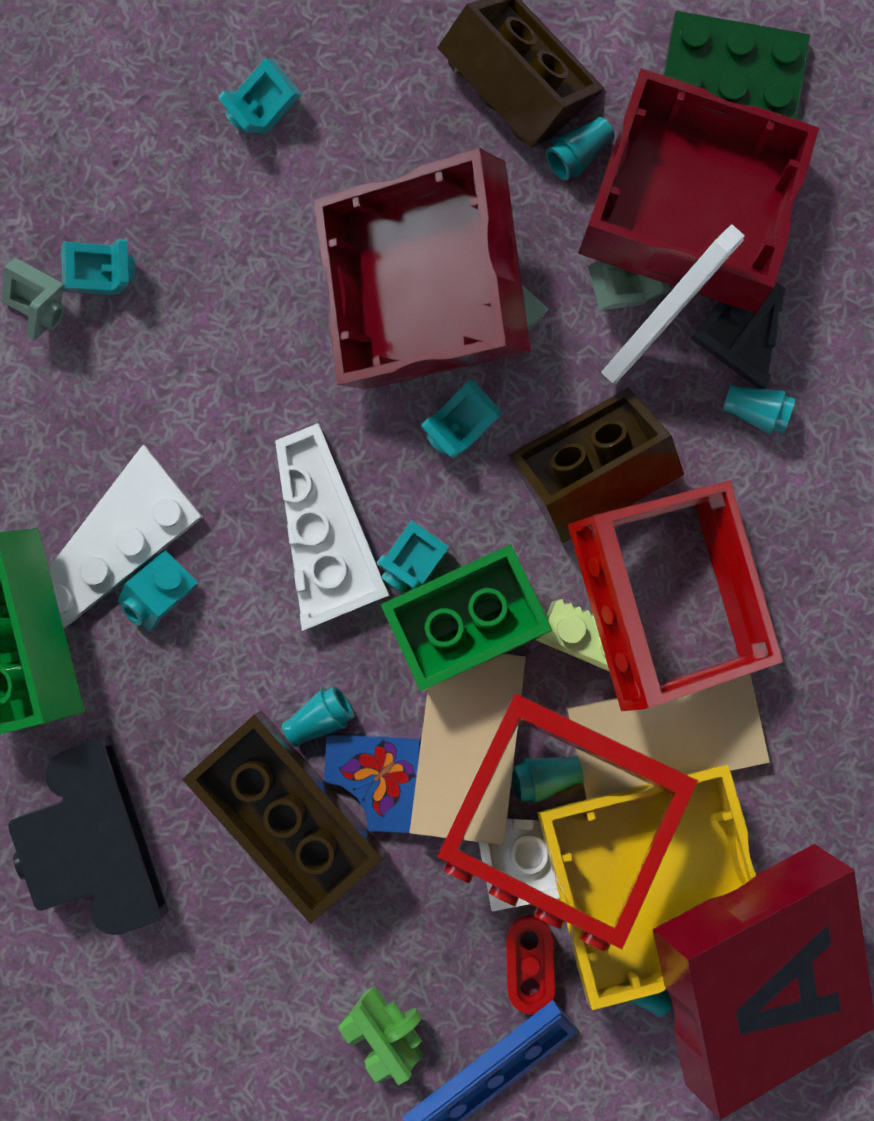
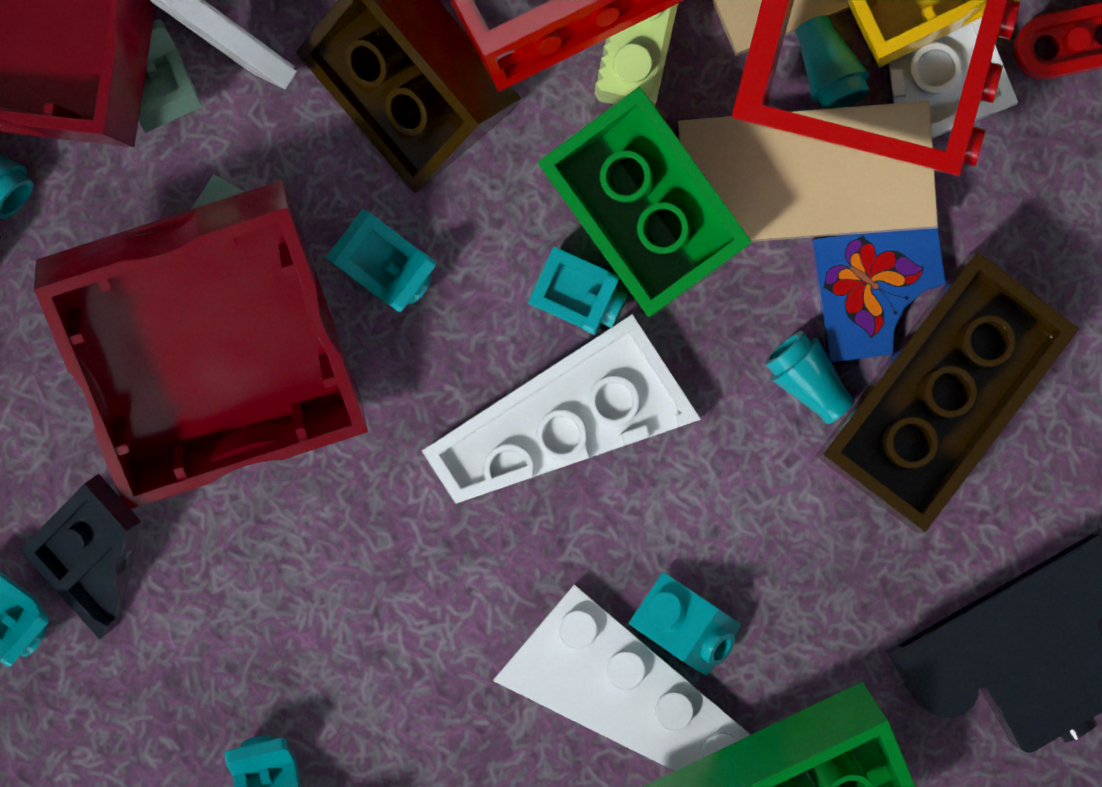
camera: 100 degrees left, 0 degrees up
(289, 170) = (88, 553): none -> black wing

